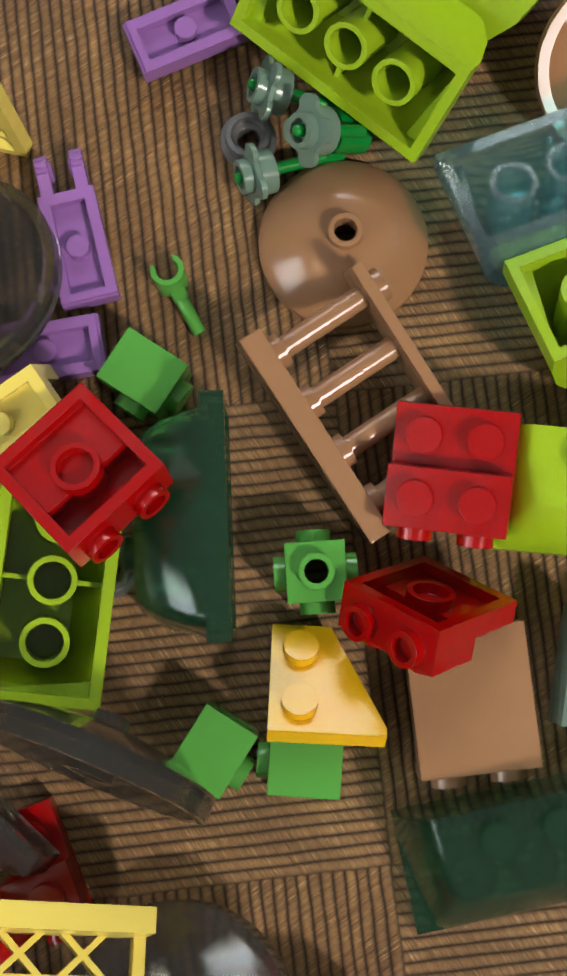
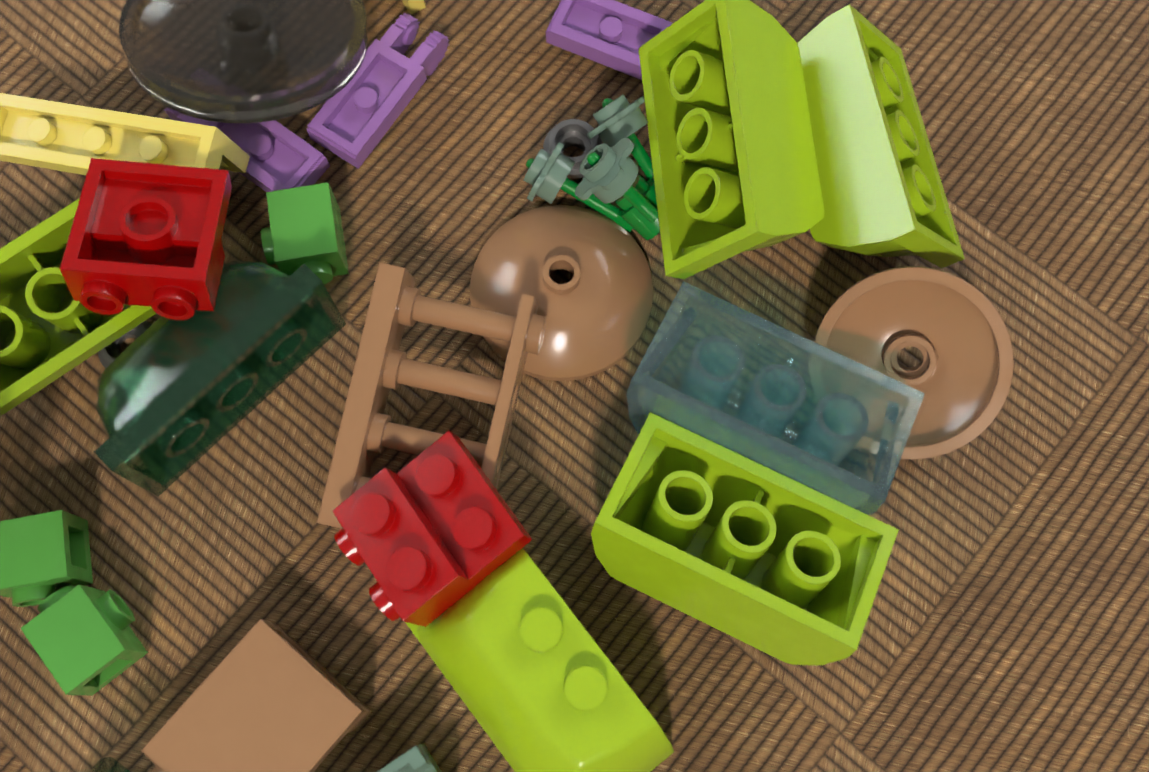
camera: 45 degrees right, 10 degrees down
(177, 291) = (405, 200): bright green hand -> none
(290, 576) = (275, 514): bright green brick -> none
(318, 692) = (149, 592): yellow wing -> none
(422, 614) = (285, 615): red plate -> none

